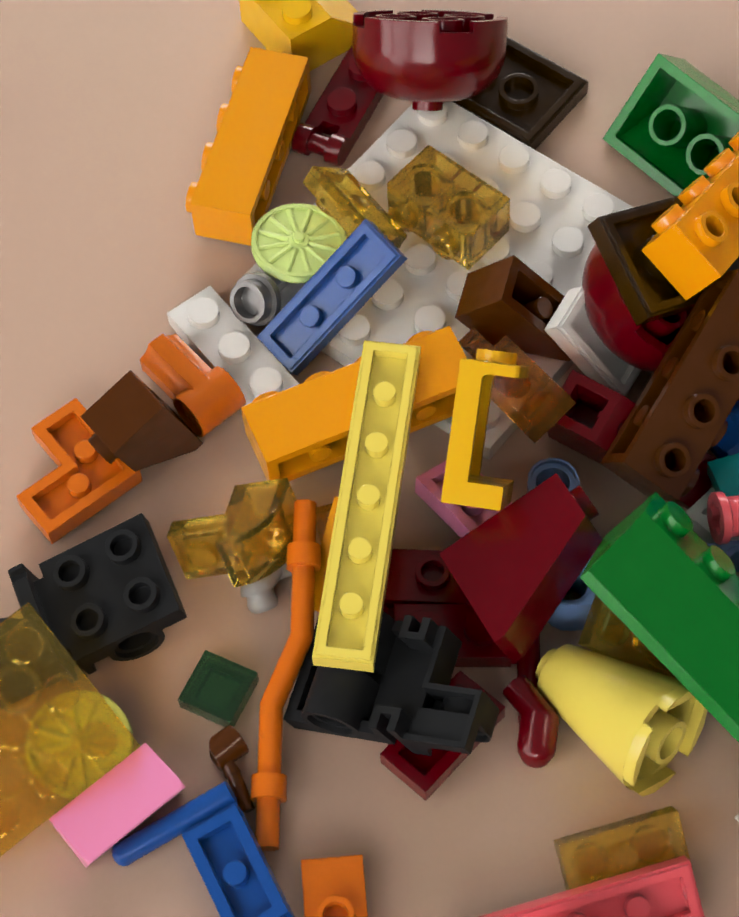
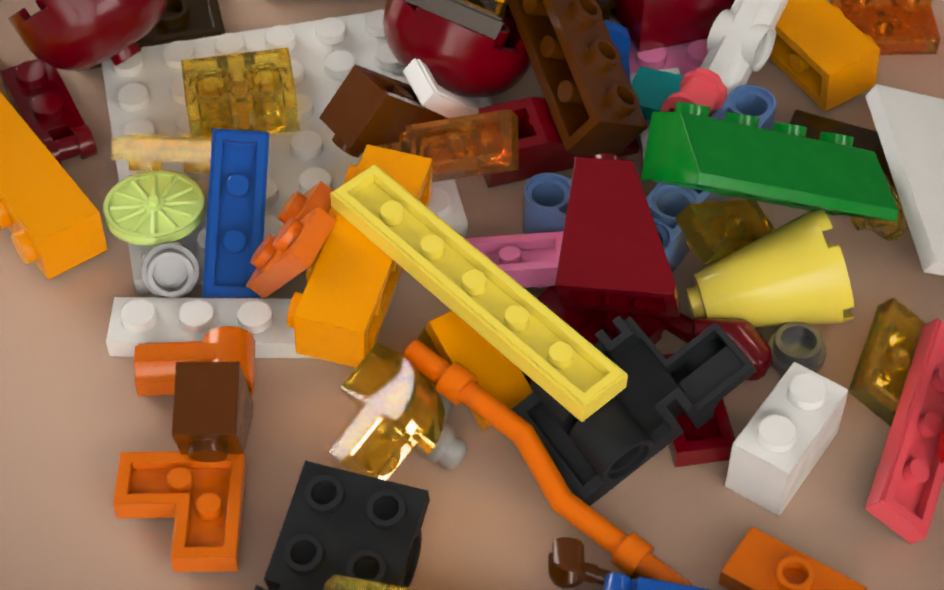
camera: 55 degrees left, 10 degrees down
(218, 689) = (505, 535): clear green tile -> none
(315, 355) = (296, 243): none -> orange plate
(464, 823) = (786, 438): none -> white brick
(468, 431) = (485, 176): yellow panel -> none
(575, 775) = (798, 344): none -> flat silver plate

